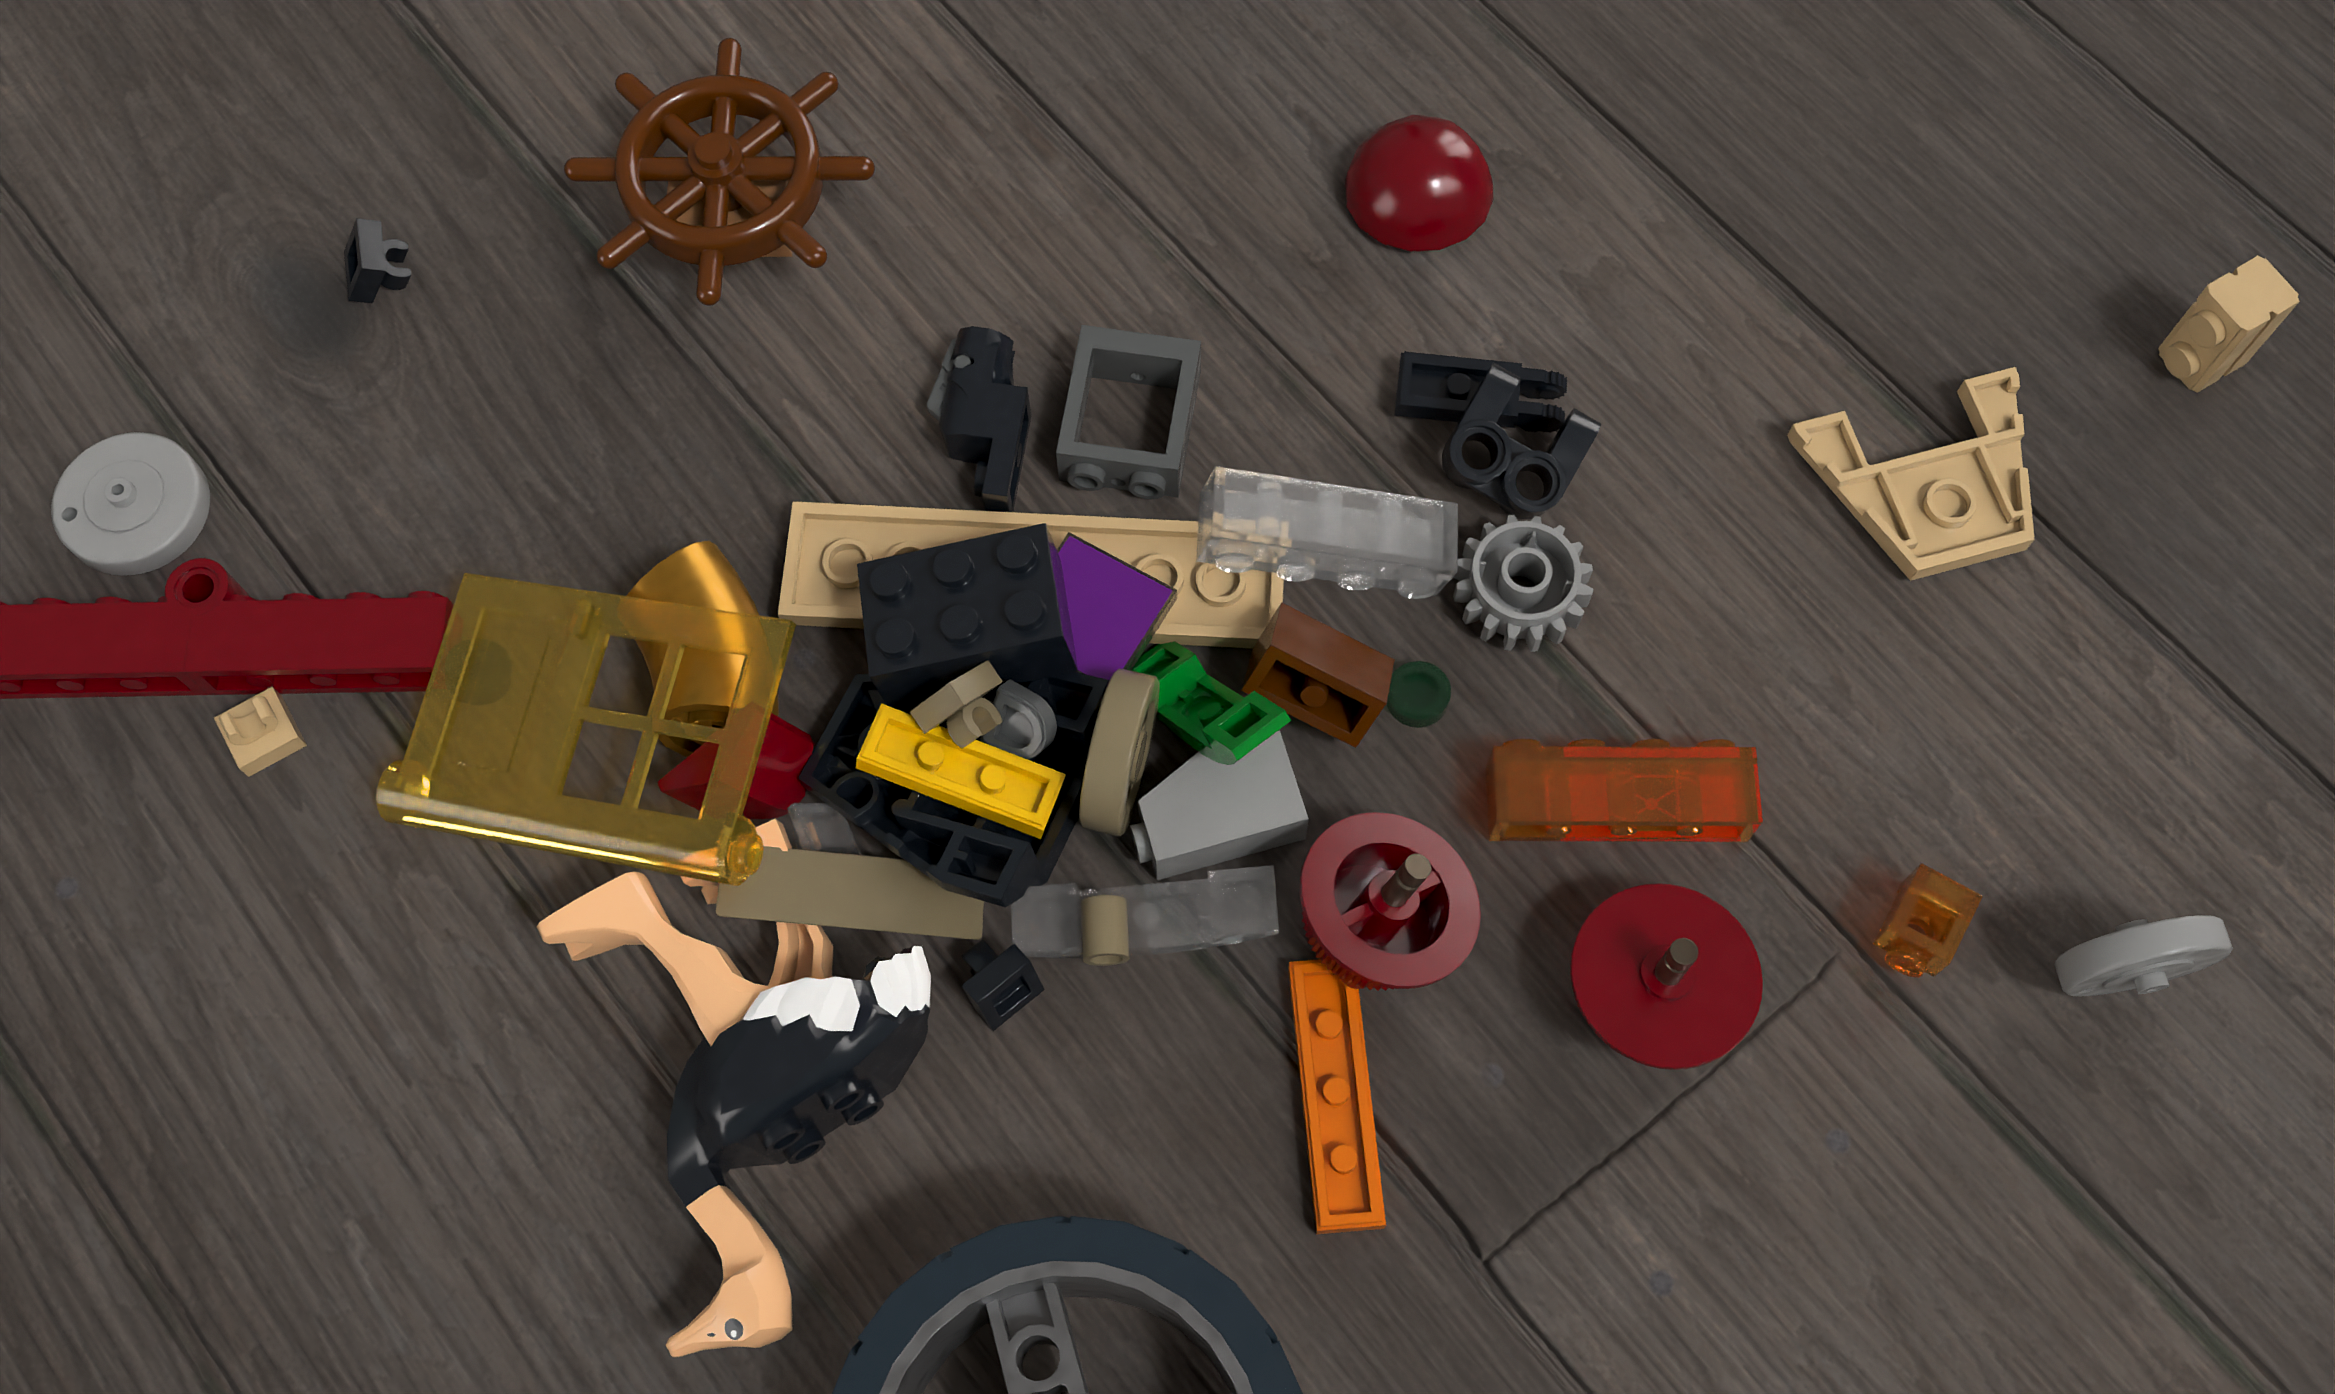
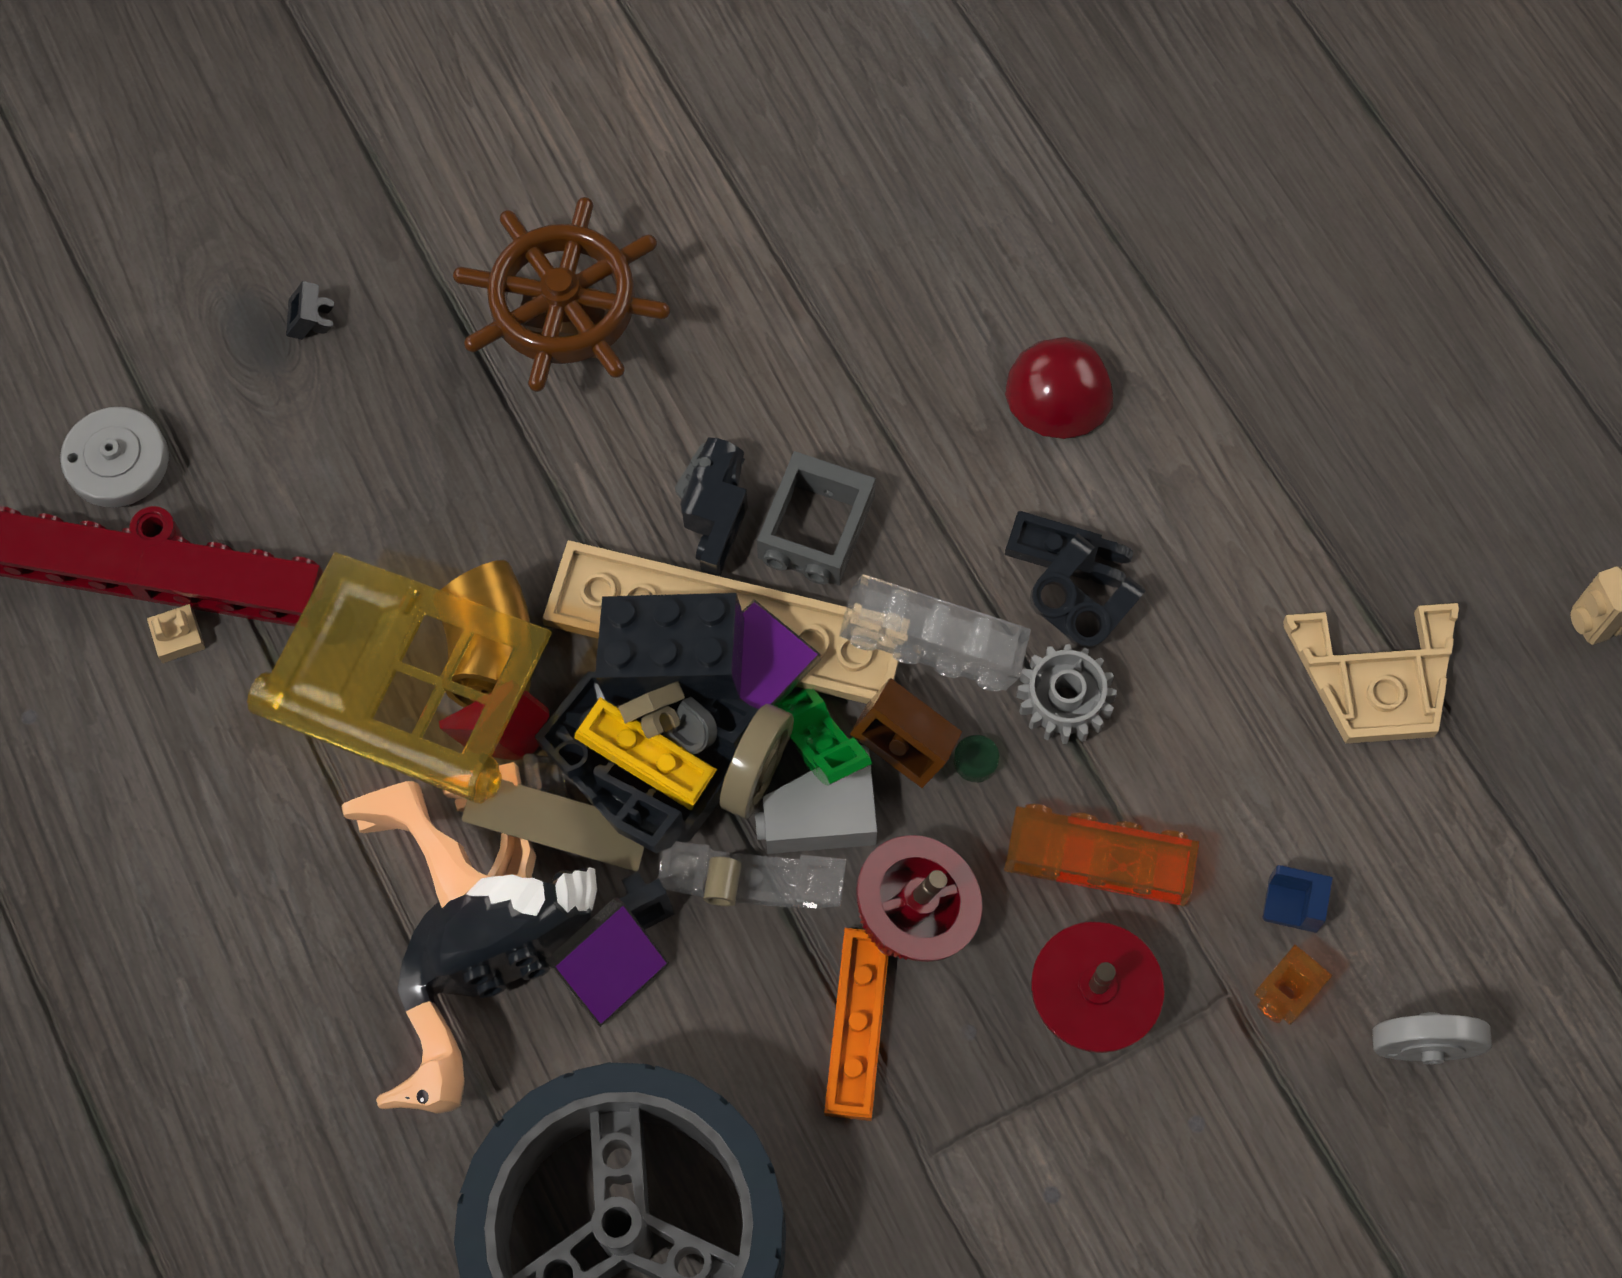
camera: 10 degrees right, 0 degrees up
(964, 1075) = (607, 961): none -> dark purple tile
(1902, 800) = (1297, 898): none -> dark blue panel

